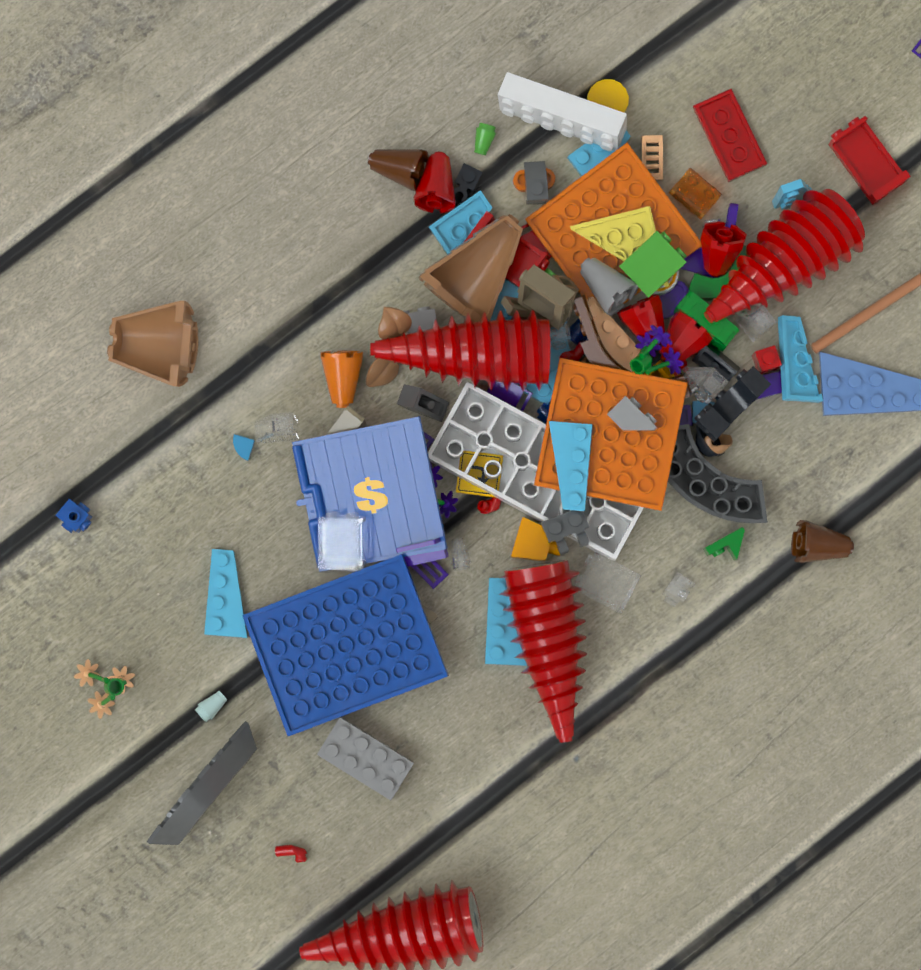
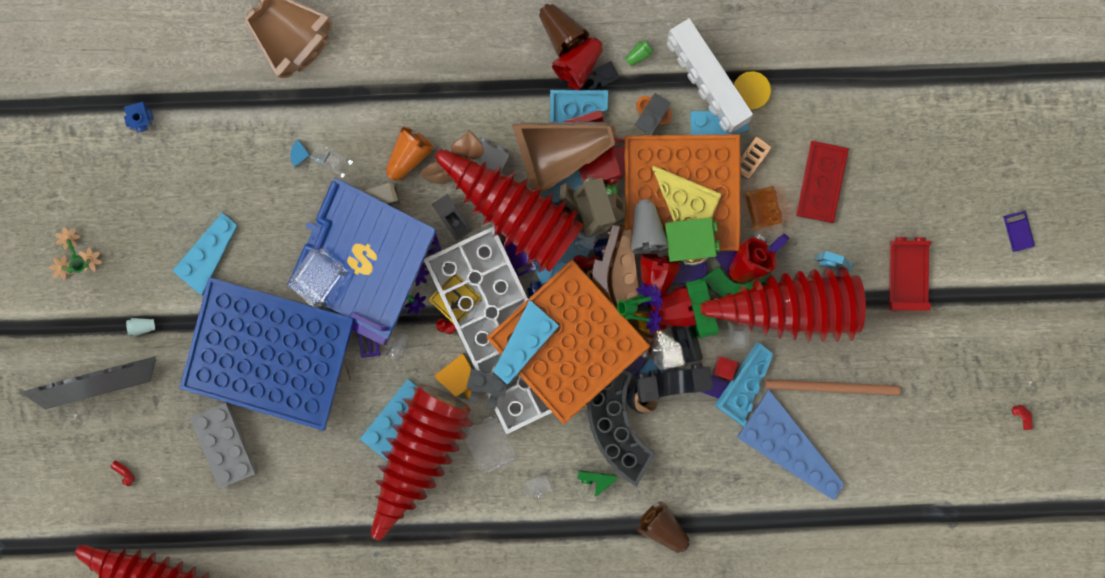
camera: 35 degrees right, 5 degrees up
(630, 418) = (589, 342): light grey slope -> none

